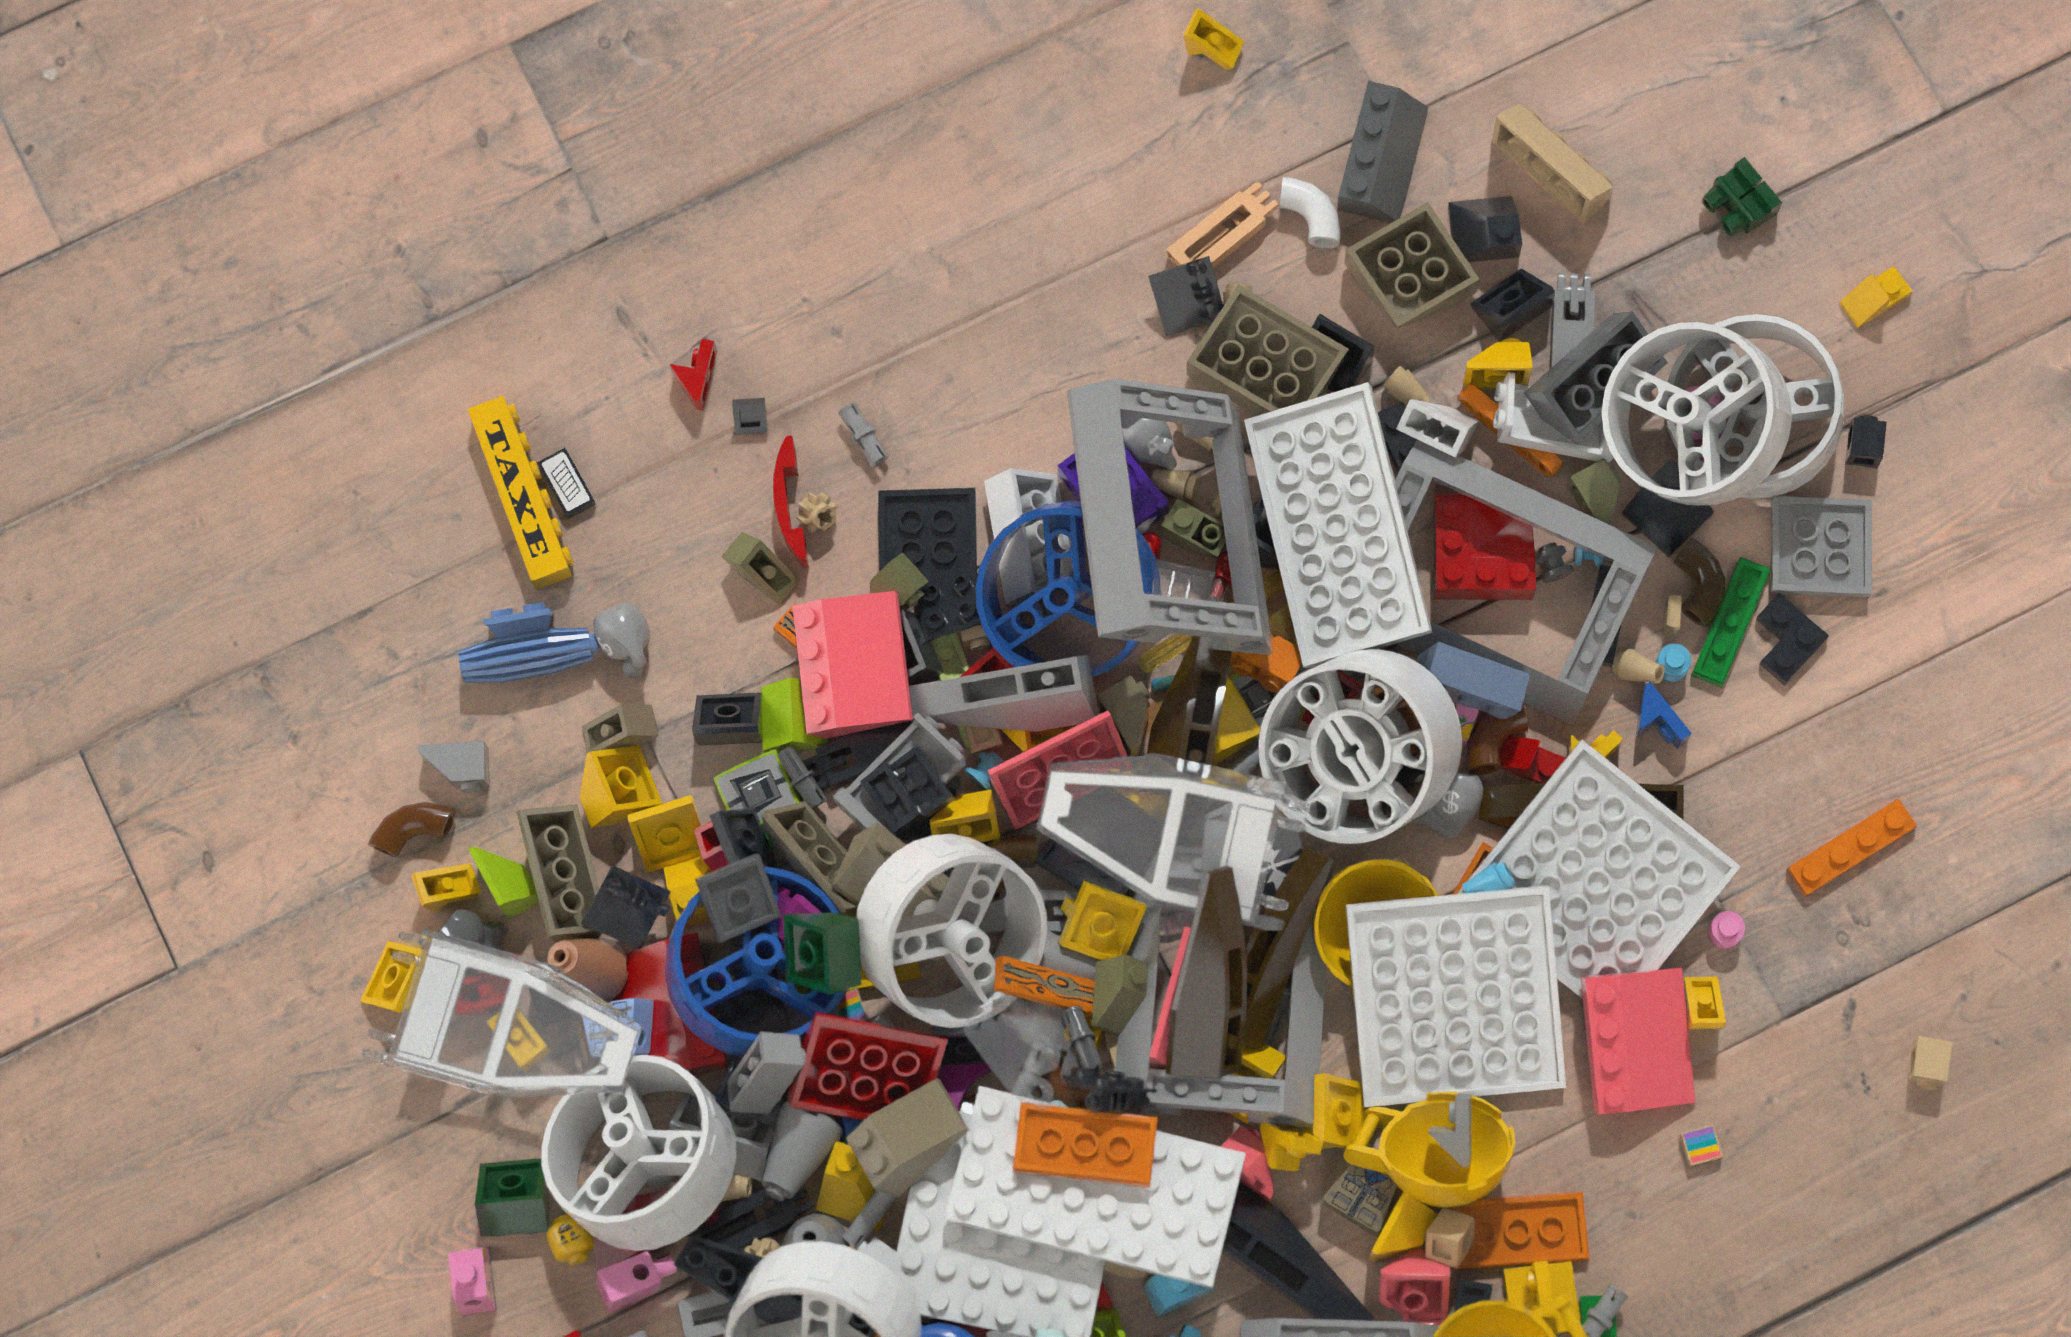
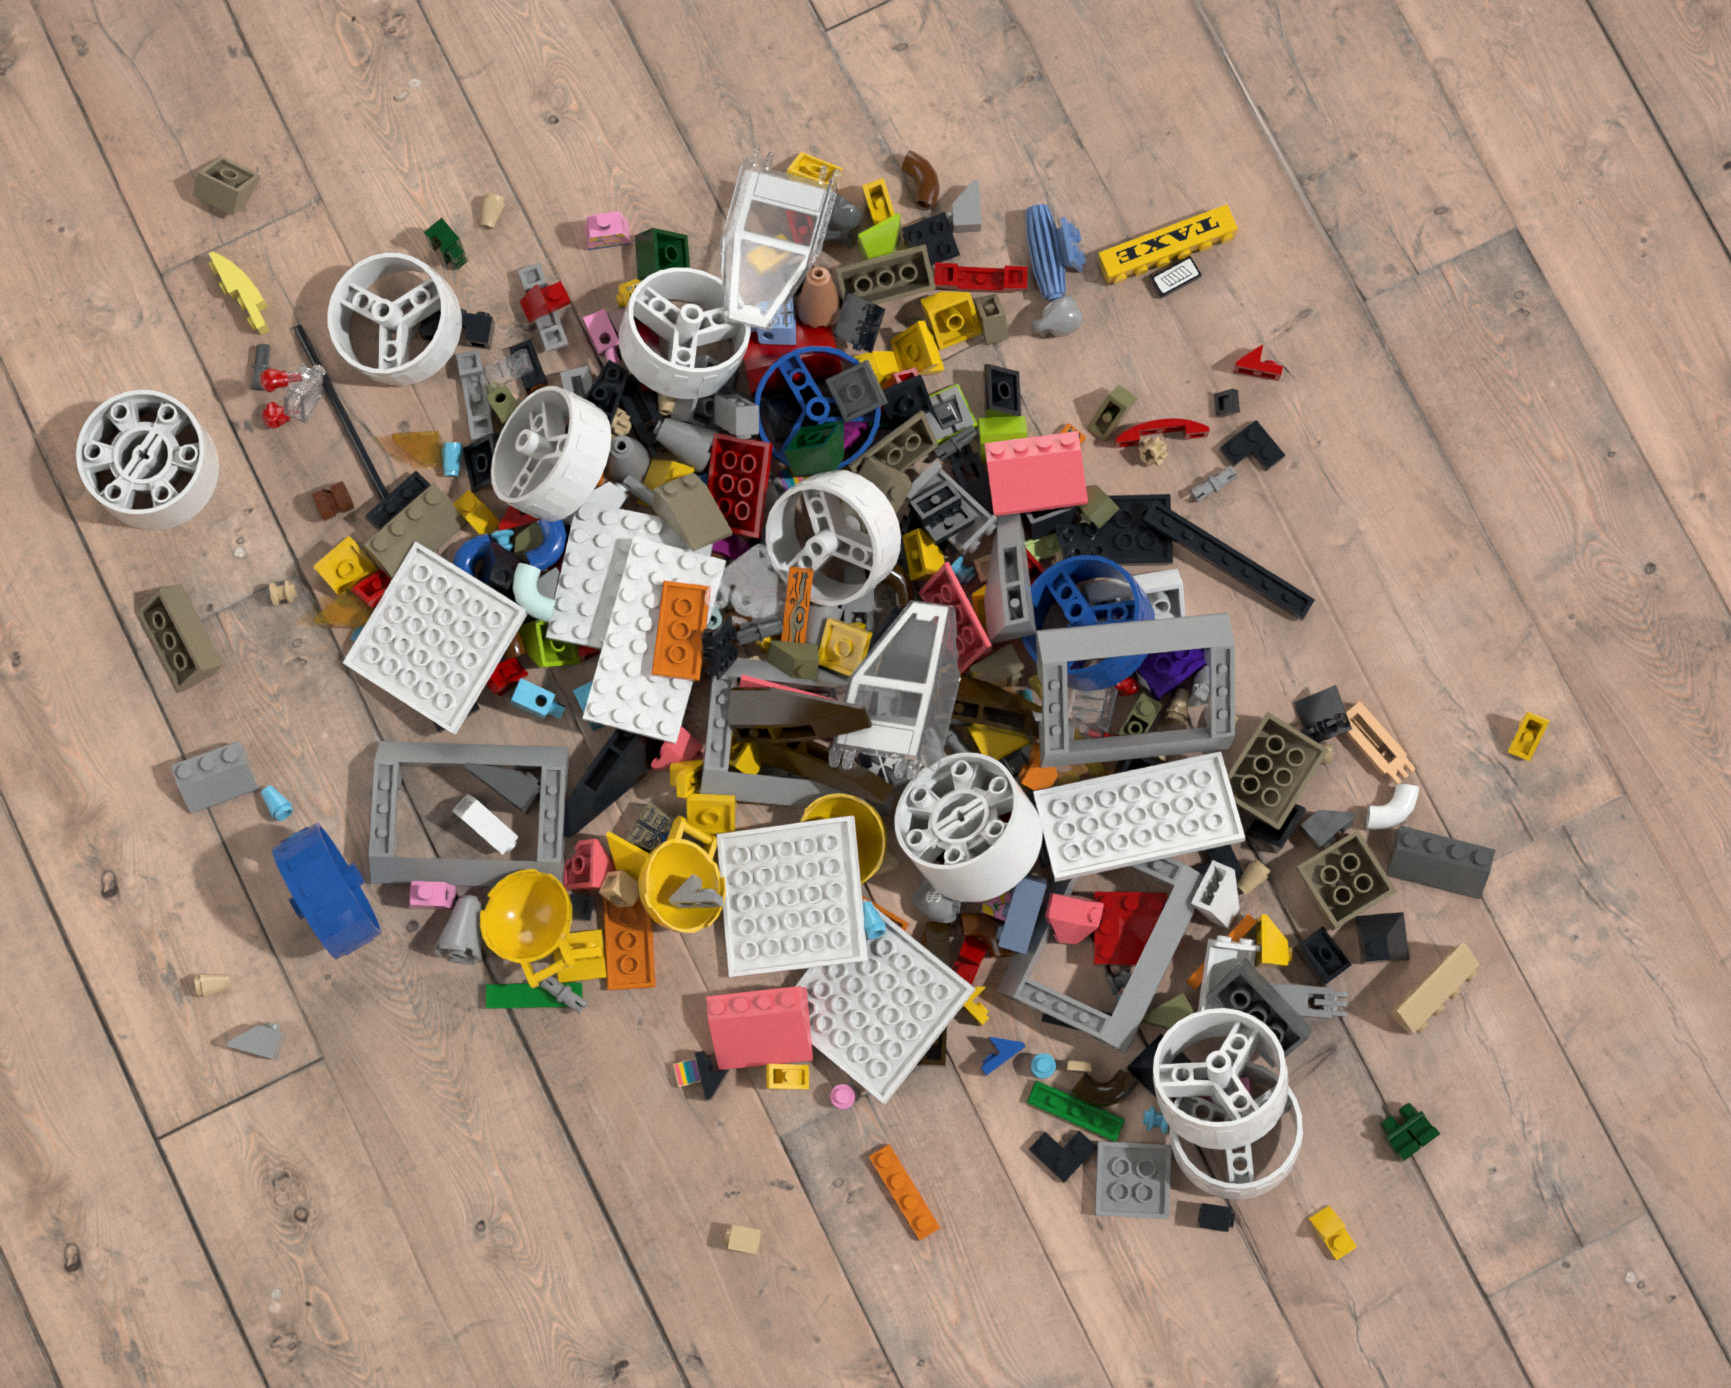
camera: 85 degrees right, 5 degrees up
(495, 815) = (936, 235): none -> black hinge
(560, 743) = (980, 278): none -> red slope
(803, 384) = (1253, 441): none -> black plate
(972, 415) = (1228, 560): none -> black plate
(1337, 295) = (1324, 824): none -> flat silver slope
(1472, 614) = (1072, 917): none -> coral slope
(1636, 667) = (1038, 1037): tan cone -> none
(1713, 1109) = (710, 1082): none -> black slope
(1738, 519) = (1154, 1119): none -> medium azure wheel

